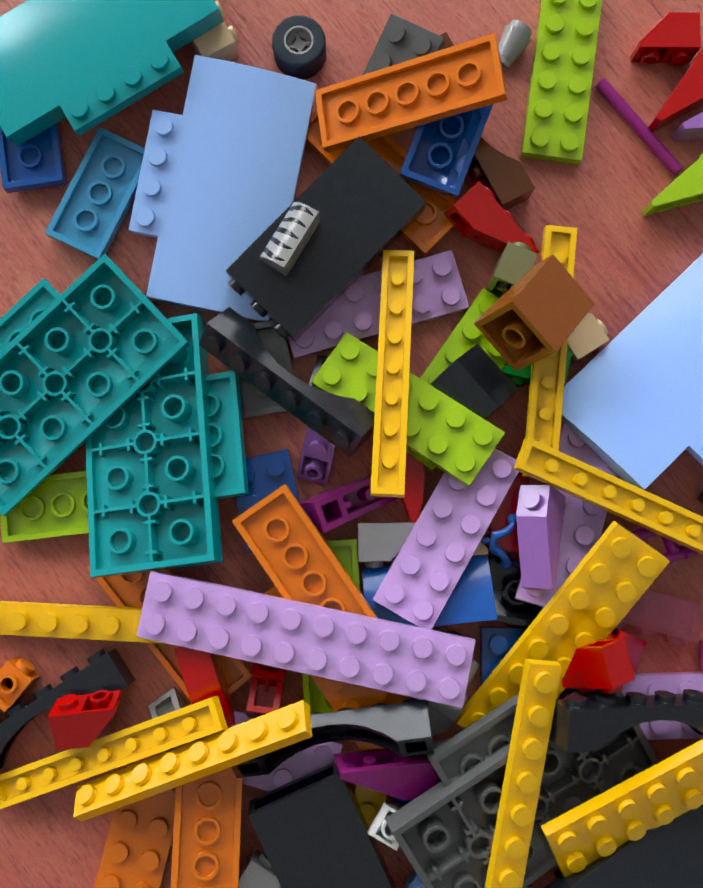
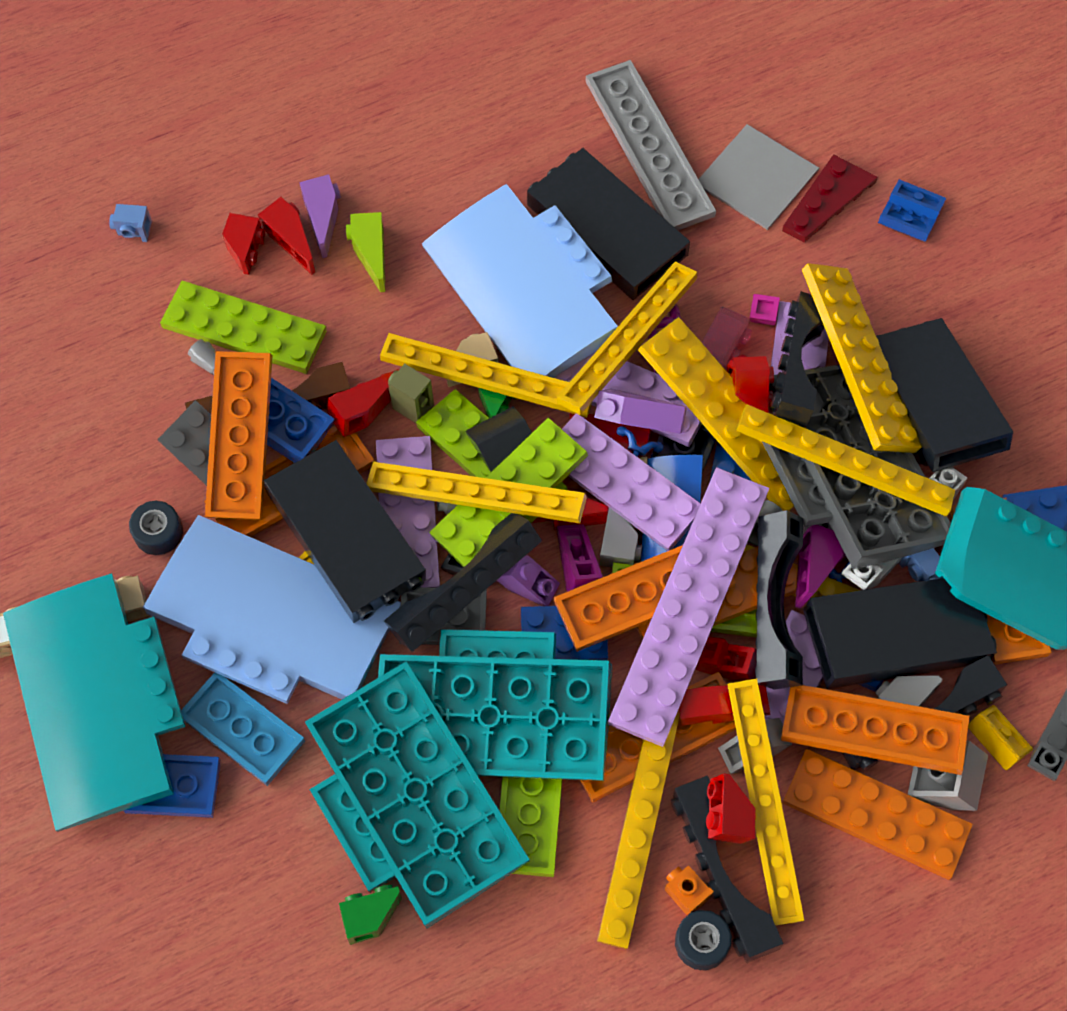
camera: 80 degrees left, 20 degrees down
(194, 761) = (782, 718): yellow plate -> none
(290, 237) = (339, 548): light grey brick -> none
(535, 314) = (457, 372): dark orange slope -> none
(639, 126) = (307, 279): magenta bar -> none

